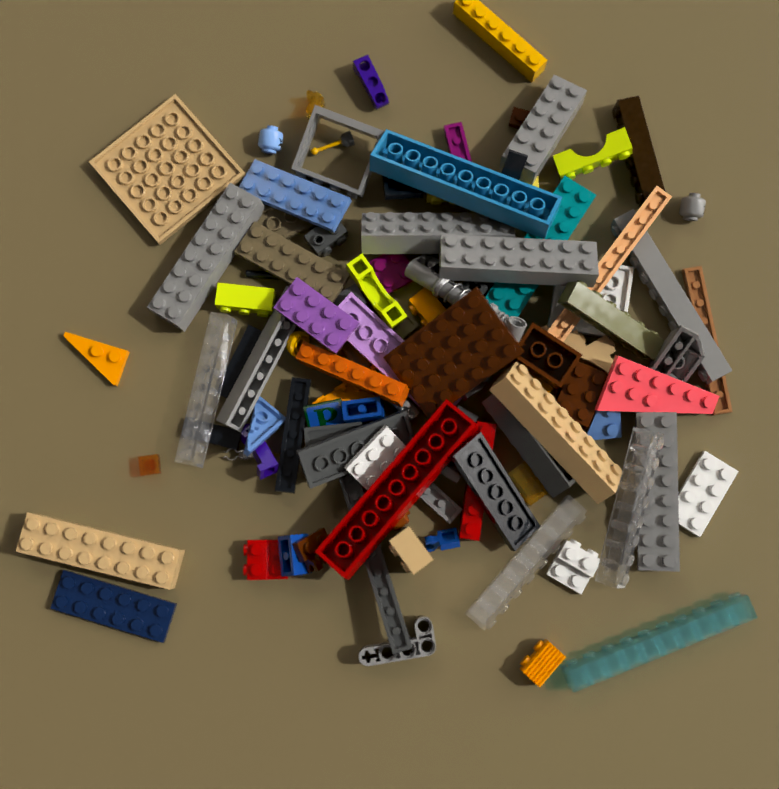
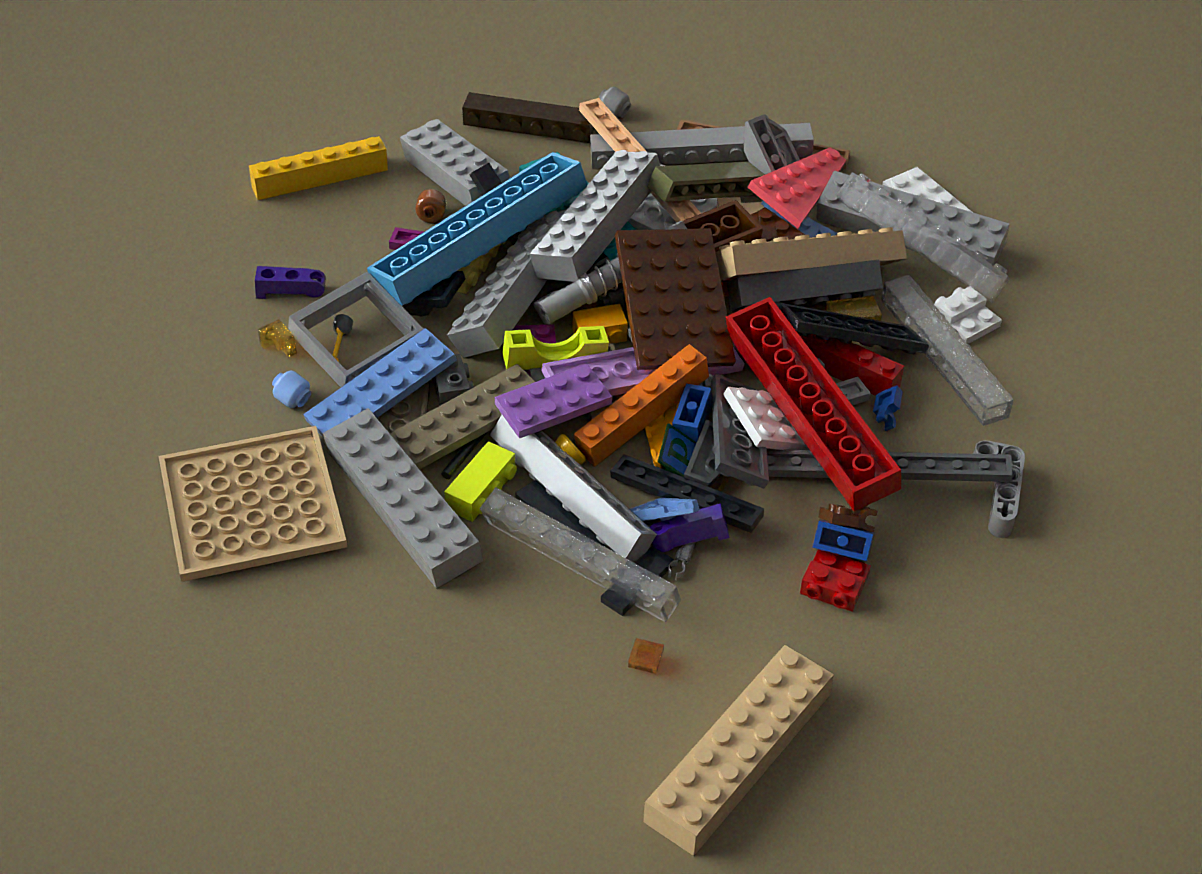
camera: 65 degrees left, 35 degrees down
(105, 358) = (461, 659): light orange wing -> none
(113, 606) = (823, 770): dark blue plate -> none
(411, 551) = (893, 413): tan brick -> none
(498, 133) = (430, 203): none -> dark orange head
(518, 117) = (421, 185): reddish brown plate -> none
(541, 662) = (1069, 373): light orange brick -> none
(616, 147) = (513, 122): neon yellow arch -> none
(658, 642) = (1080, 283): clear light blue brick -> none

